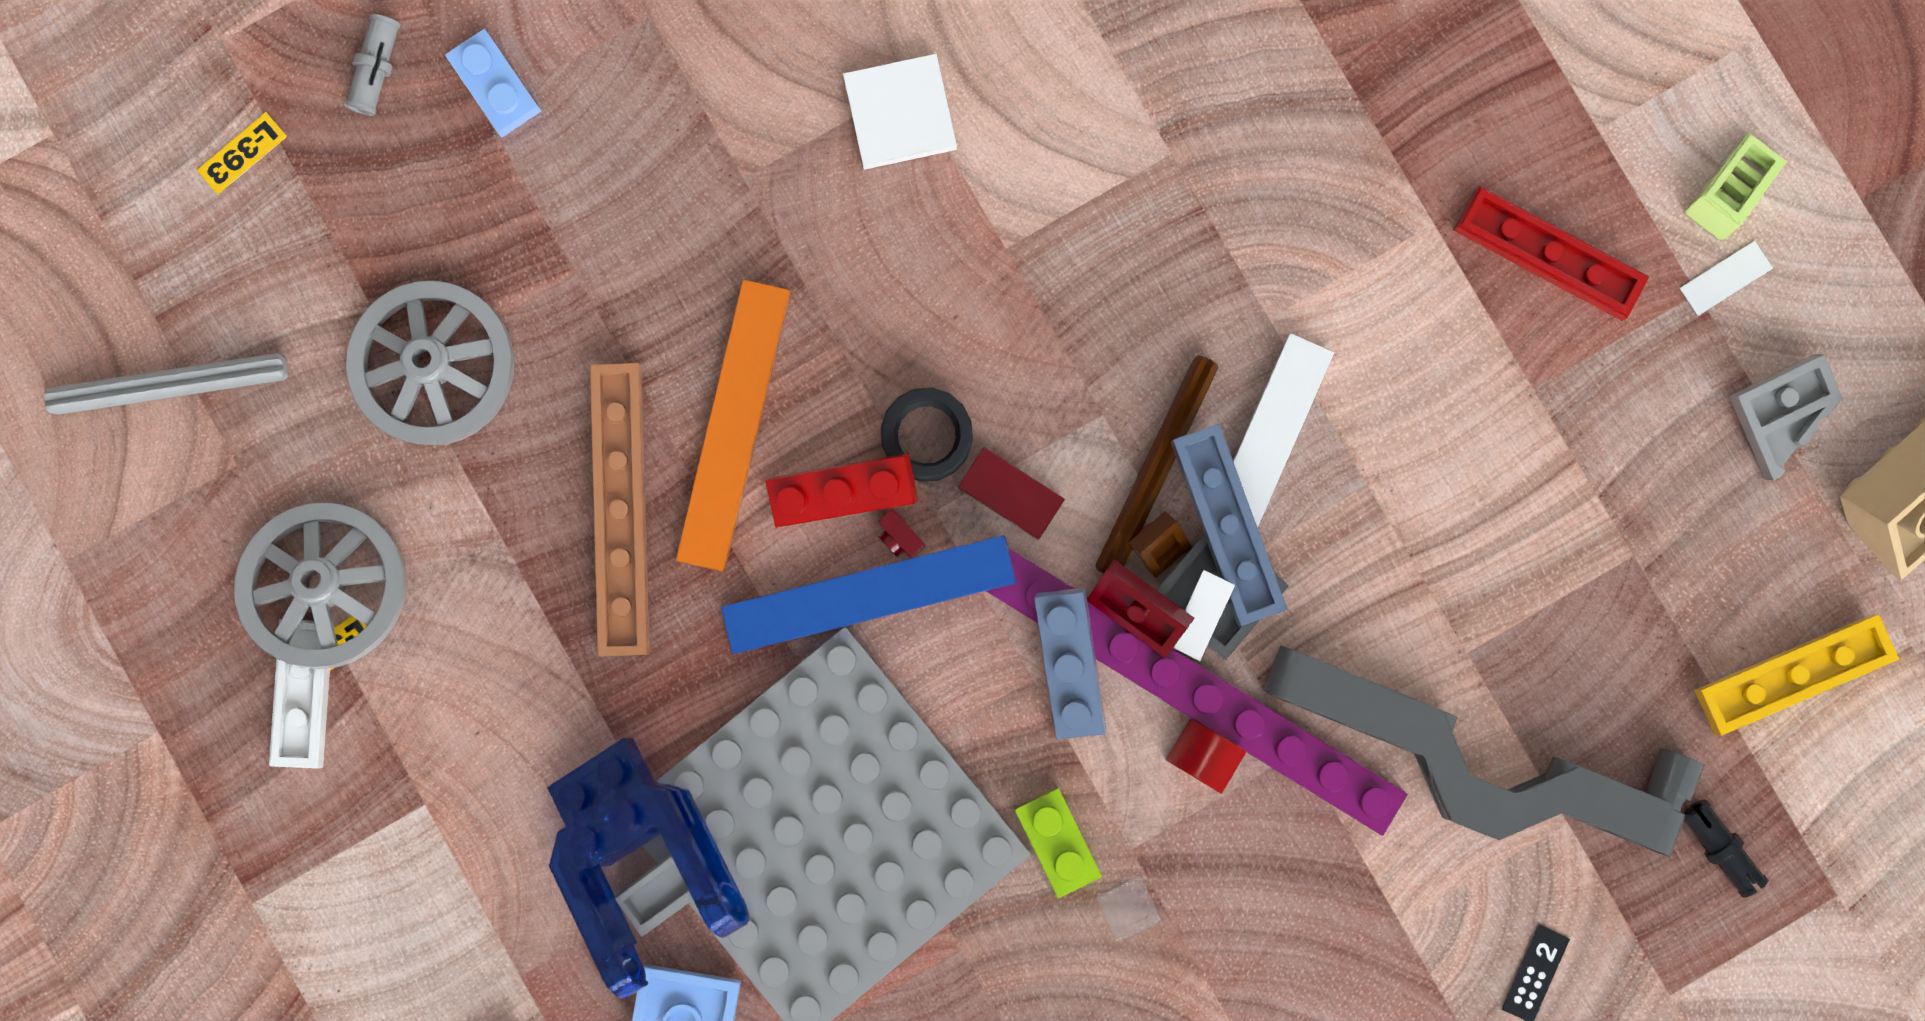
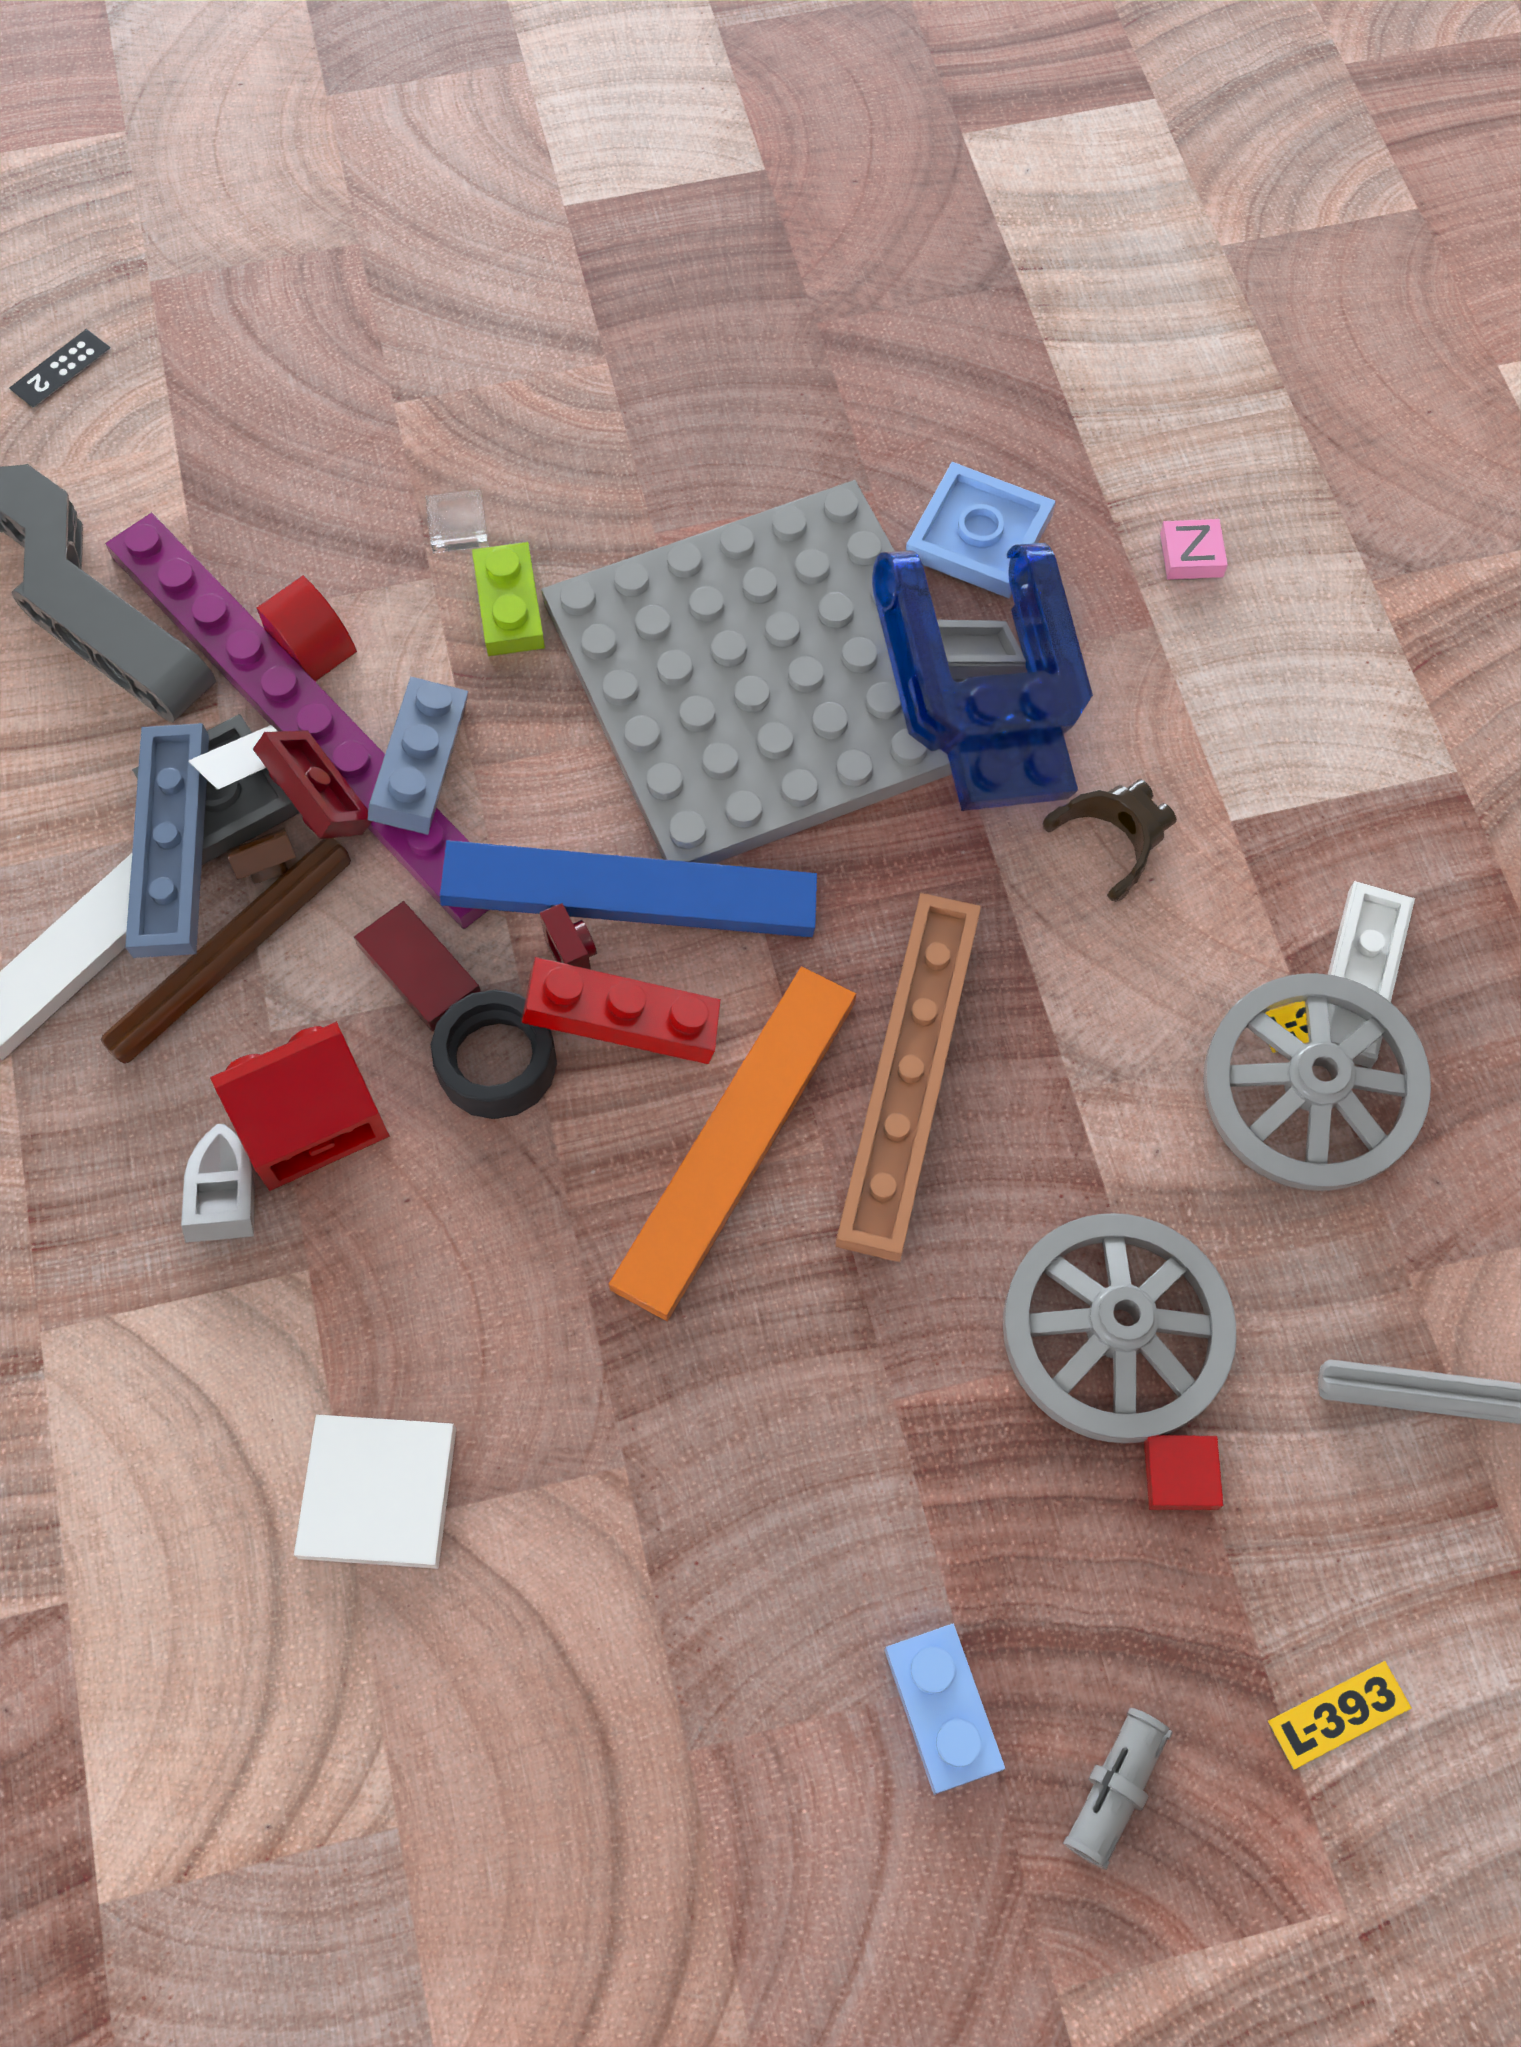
camera: 160 degrees left, 20 degrees down
(367, 274) = (1183, 1472): none -> red tile
(493, 776) = (1130, 811): none -> dark brown helmet
(1043, 343) = (300, 1105): none -> red slope
(1086, 281) = (218, 1189): none -> light grey plate

